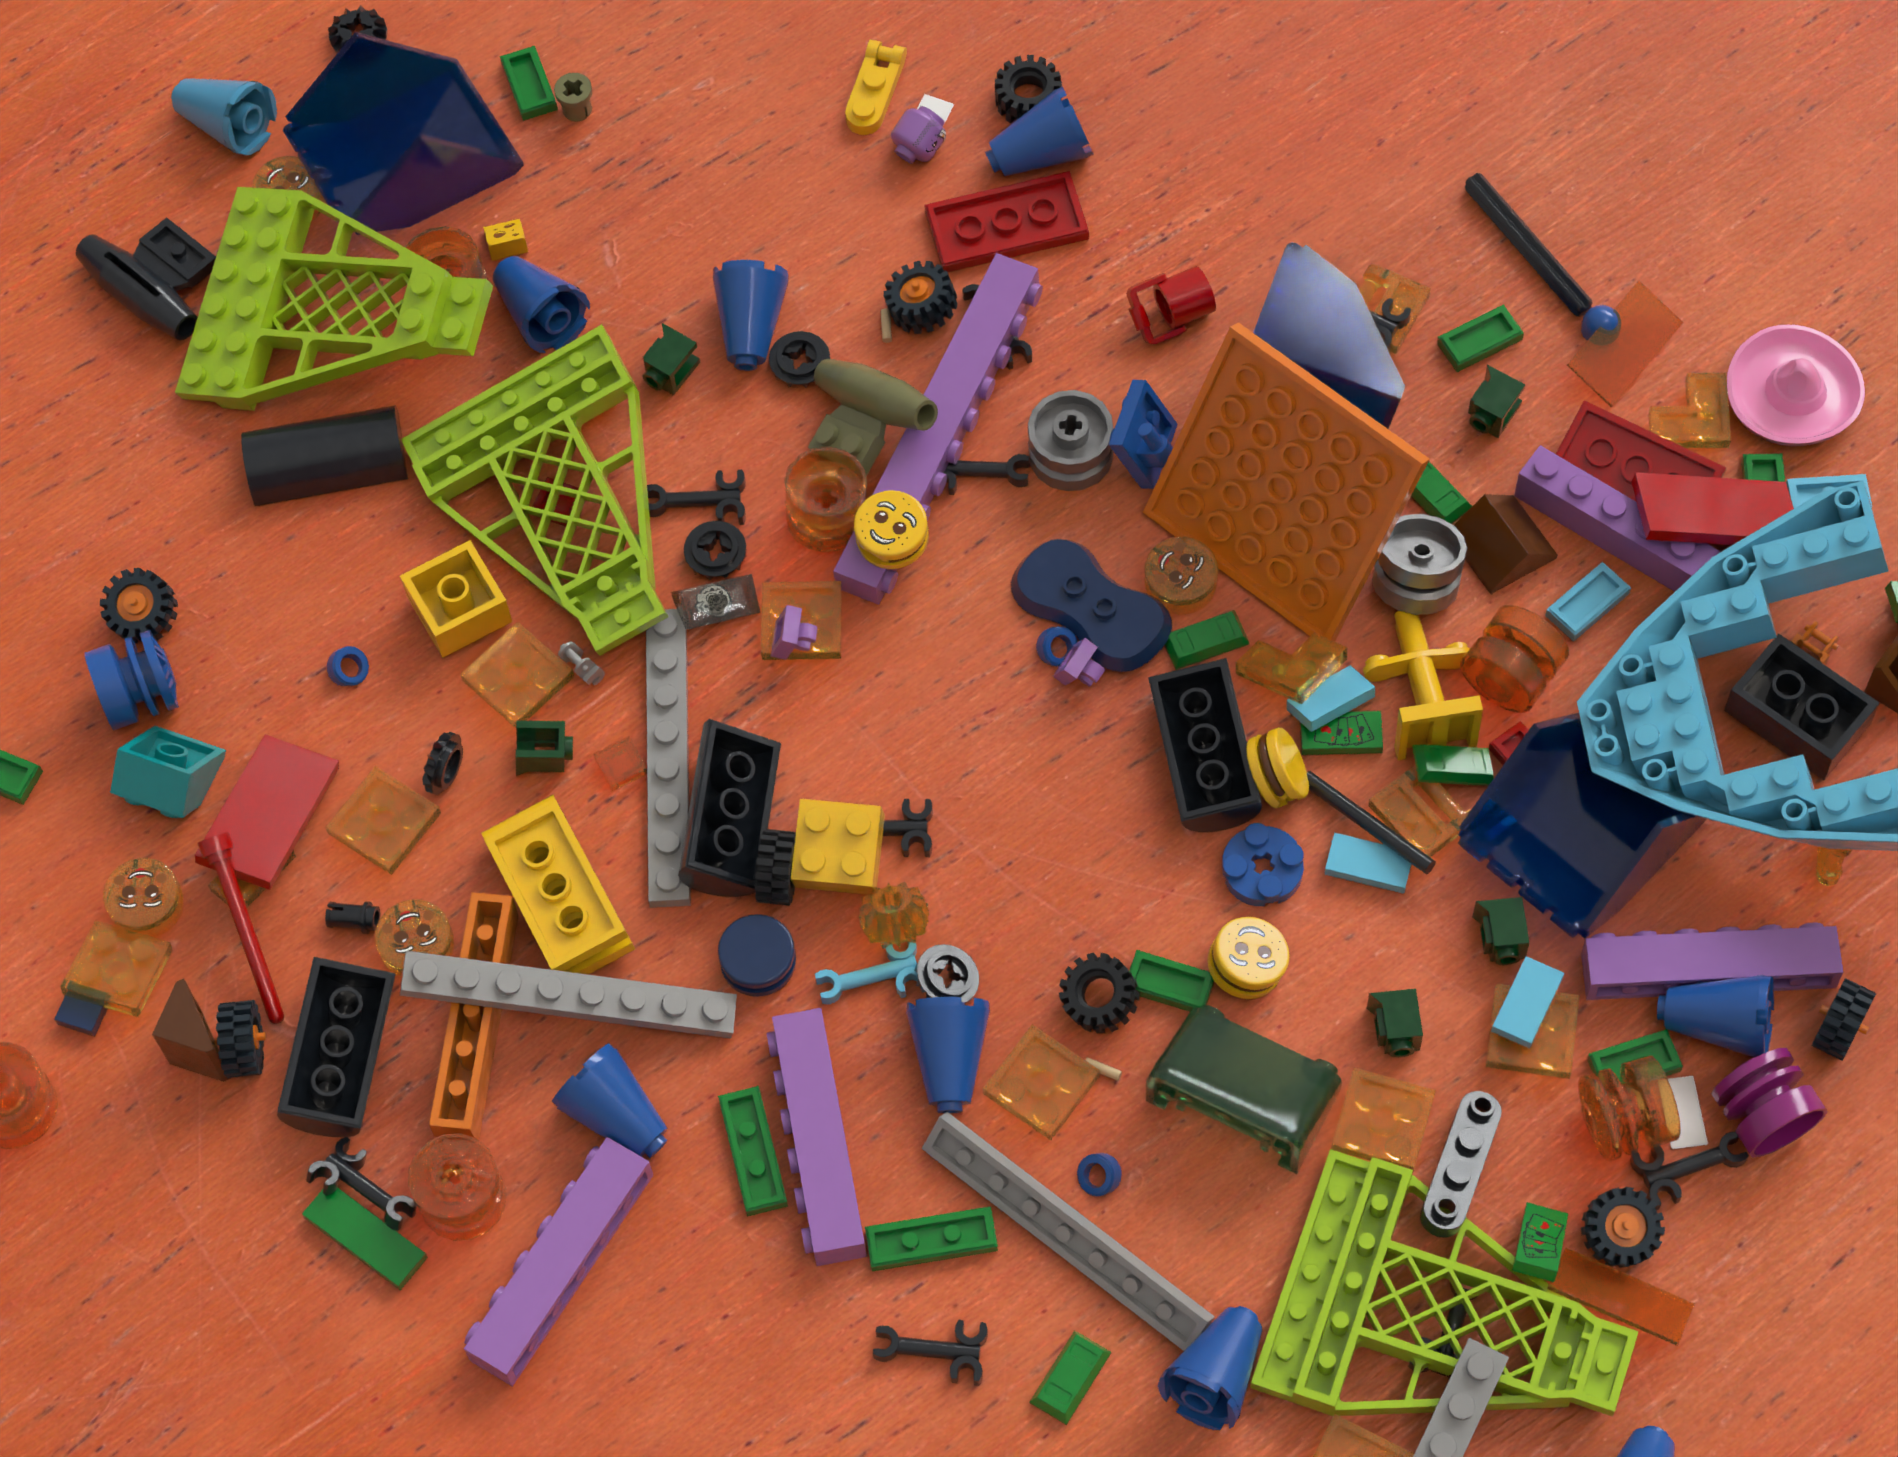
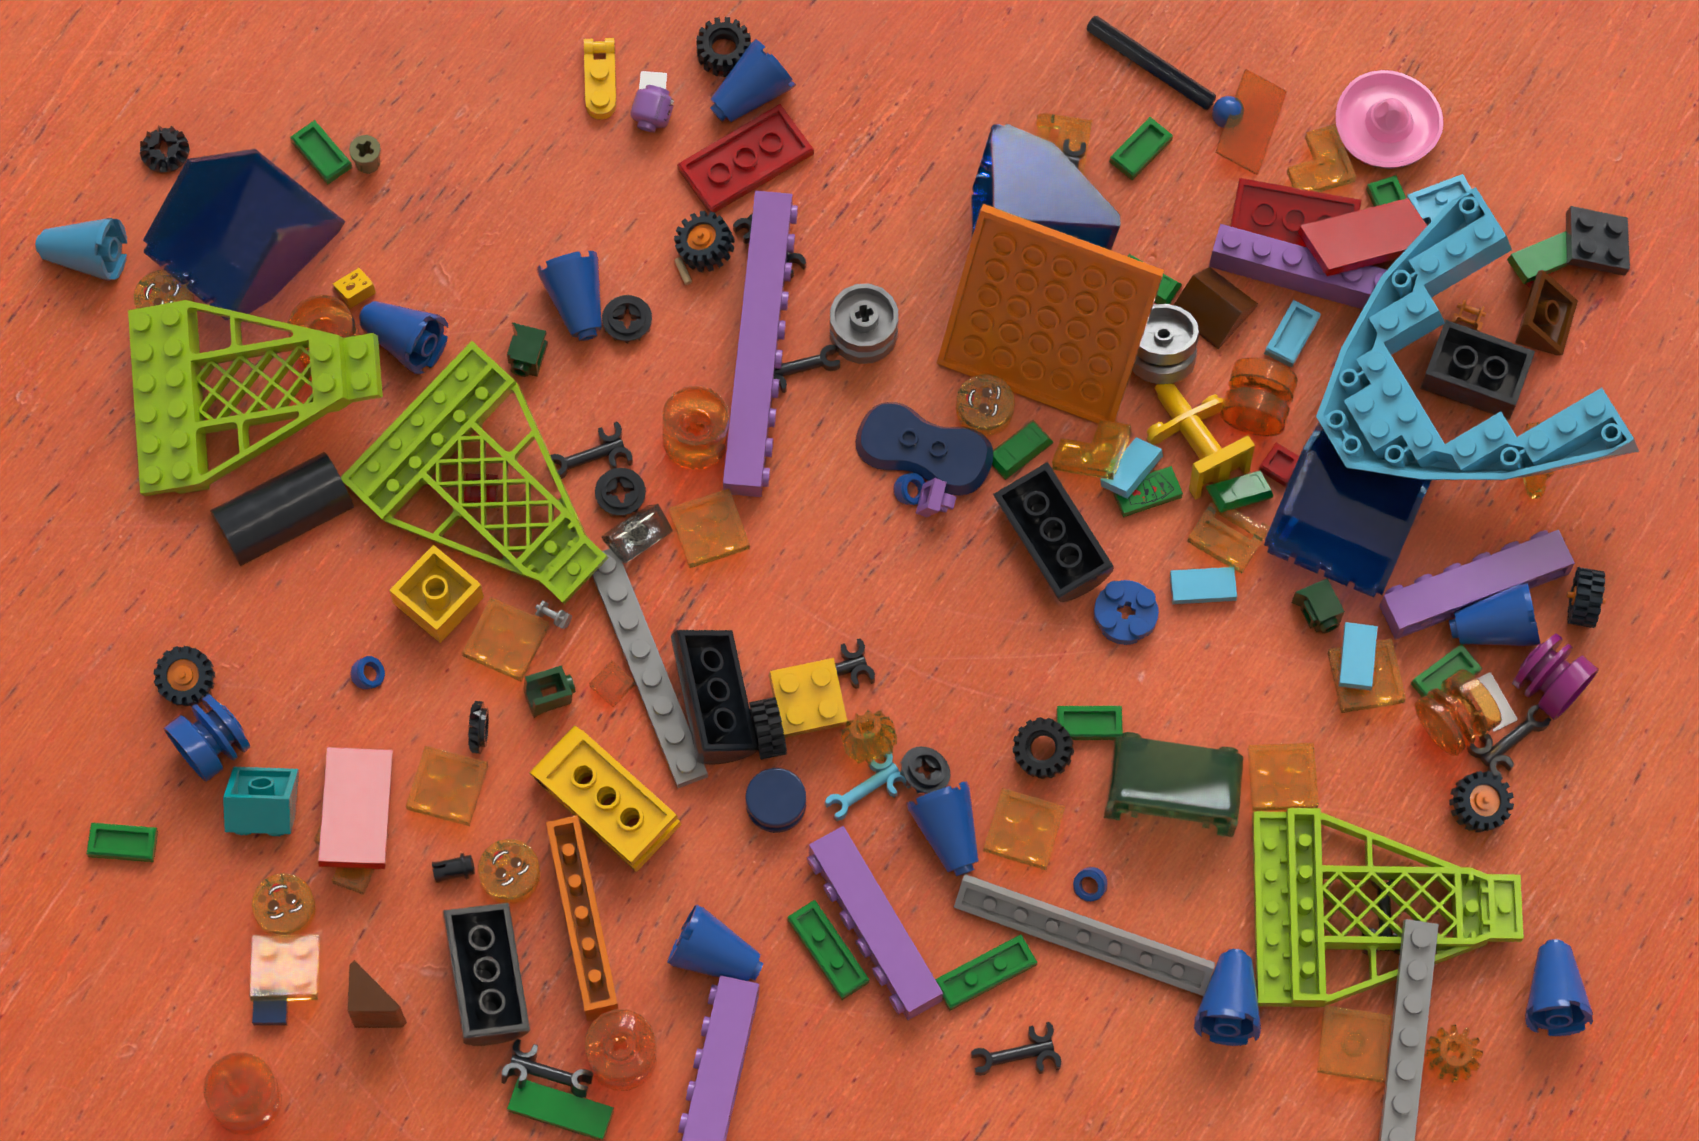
camera: 25 degrees left, 5 degrees up
(149, 278) = (81, 402): black plate -> none
(218, 852) = (339, 854): red piece -> none
(240, 1038) = (408, 991): black wheel -> none
(568, 994) = (648, 877): light grey plate -> none
(791, 633) = (709, 542): medium lavender tile -> none
(867, 404) = (699, 346): olive plate -> none
(891, 529) = (758, 438): yellow head -> none
(1070, 1377) = (1124, 1041): green tile -> none
(1105, 1069) = (1067, 803): tan piece -> none
(1143, 434) = (920, 303): blue plate -> none
(1179, 300) = (904, 186): red piece -> none
(1248, 957) = (1143, 686): yellow head -> none
(1277, 767) = (1114, 534): yellow head -> none
(1370, 824) = (1192, 555): black bar -> none
(1397, 1021) = (1267, 700): dark green window -> none
(1460, 1164) = (1351, 792): plate -> none
(1495, 402) = (1171, 197): dark green window -> none
(1540, 1242) = (1427, 831): green tile -> none
(1621, 1296) = (1497, 852): clear orange piece -> none

